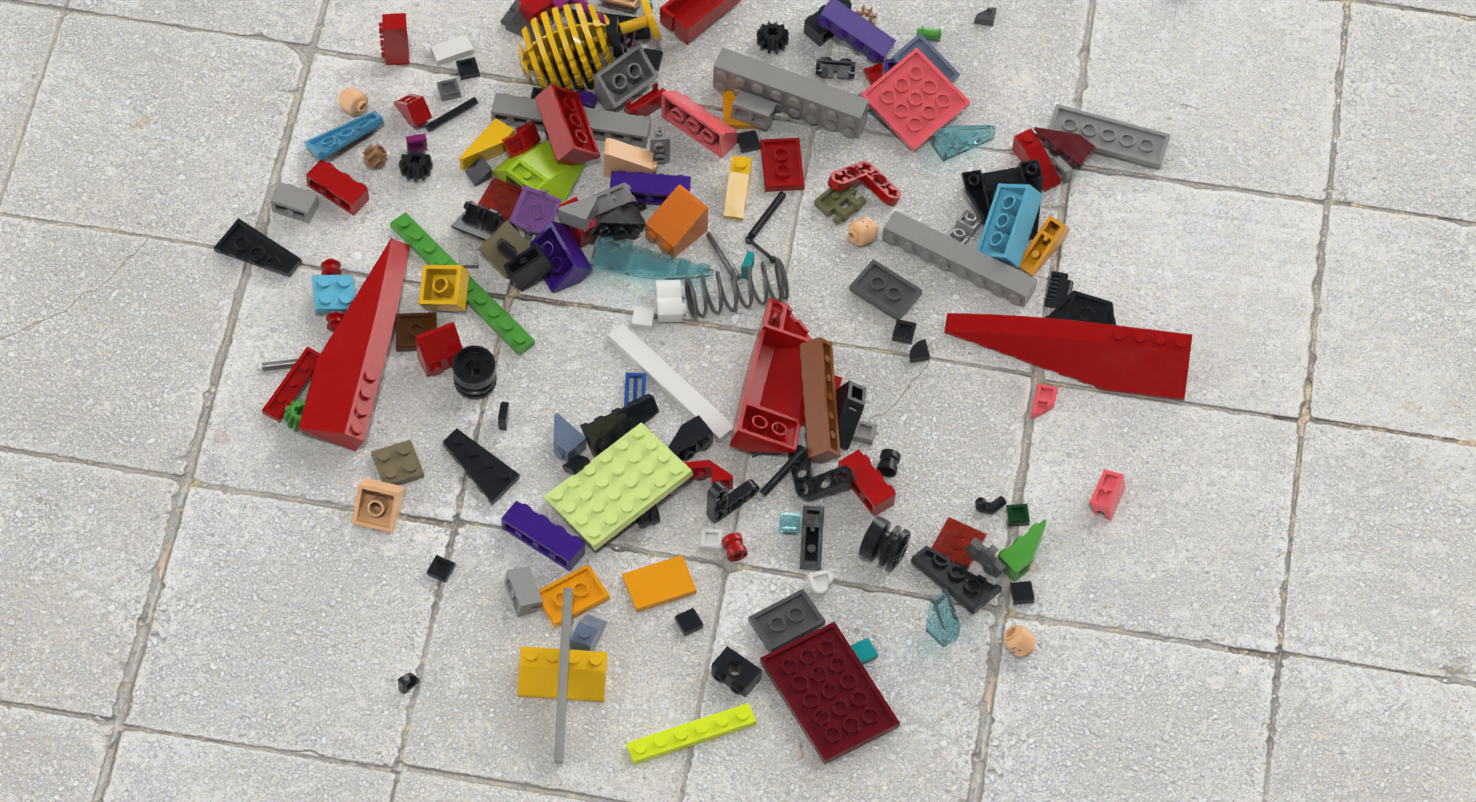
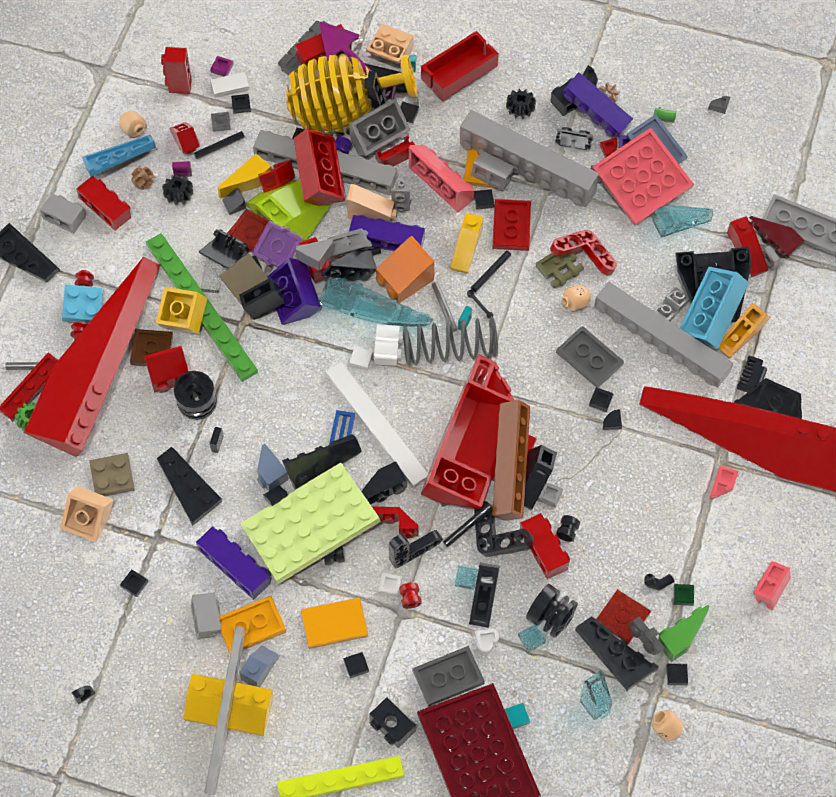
camera: 10 degrees right, 5 degrees up
(439, 31) = (222, 66): none -> magenta tile
(506, 247) = (244, 279): black tile -> none
(867, 575) = (531, 638): none -> clear light blue plate

